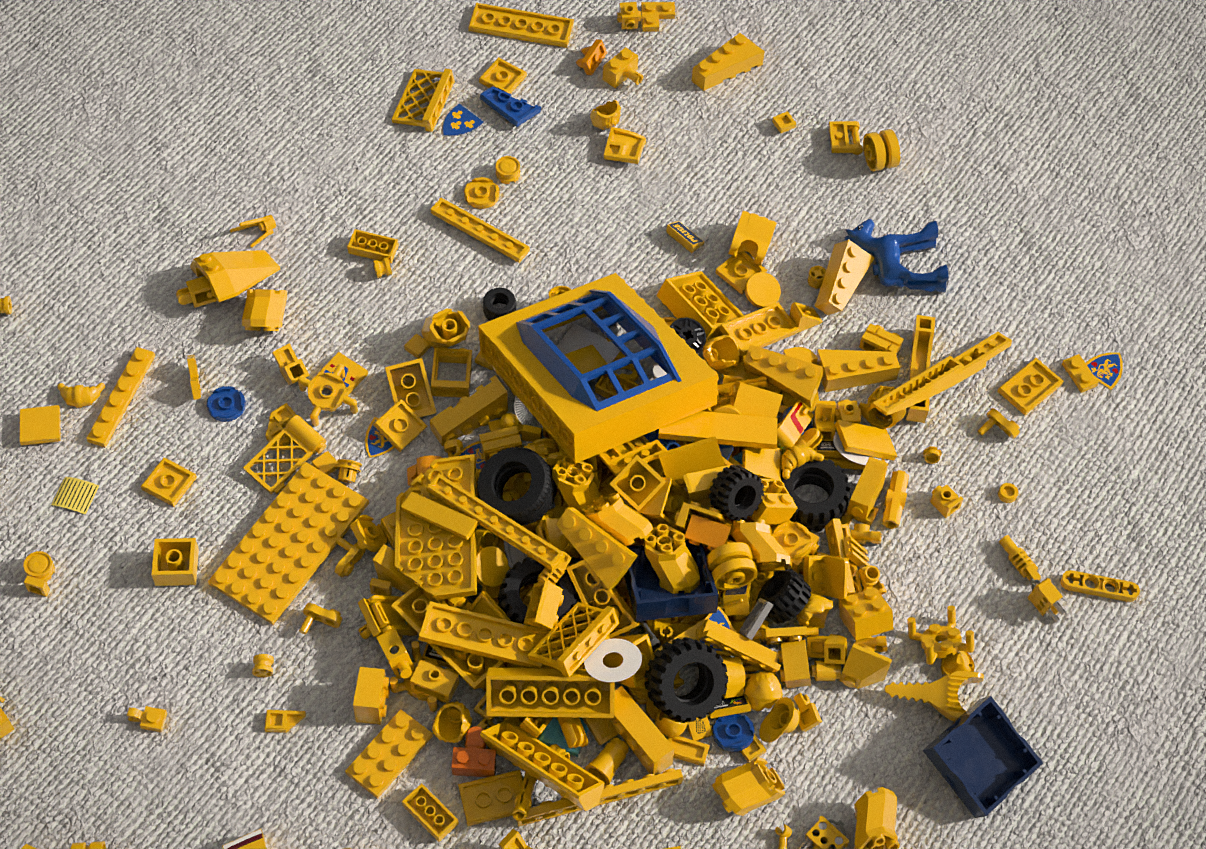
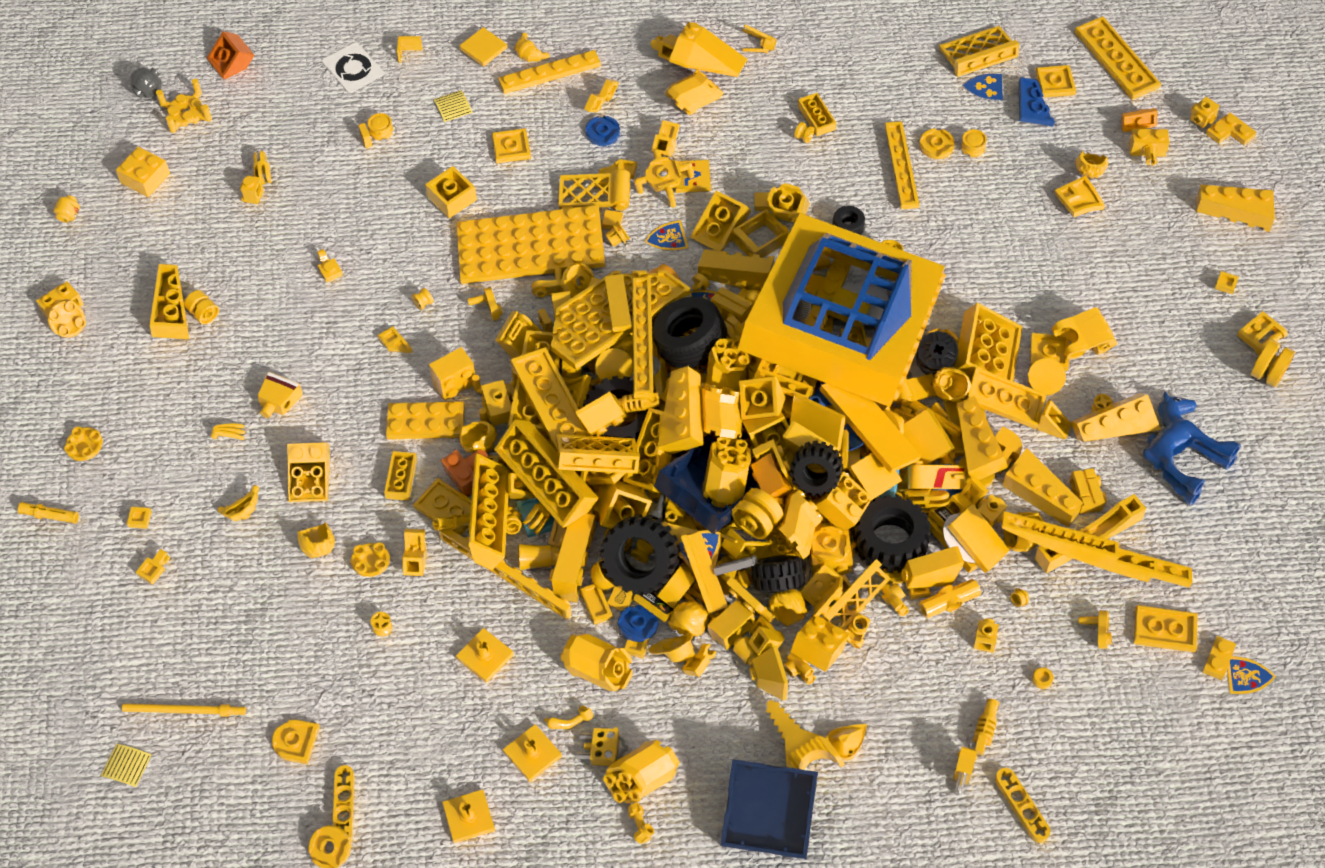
camera: 55 degrees right, 0 degrees up
(400, 425) = (685, 237): yellow tile -> none
(400, 661) = (496, 363): yellow torso -> none
(631, 661) = (616, 486): white sticker -> none
(684, 236) = (1042, 293): yellow slope -> none
(796, 457) = (905, 496): yellow piece -> none
(857, 553) = (871, 597): yellow tile -> none
(949, 636) = (844, 707): yellow plate -> none

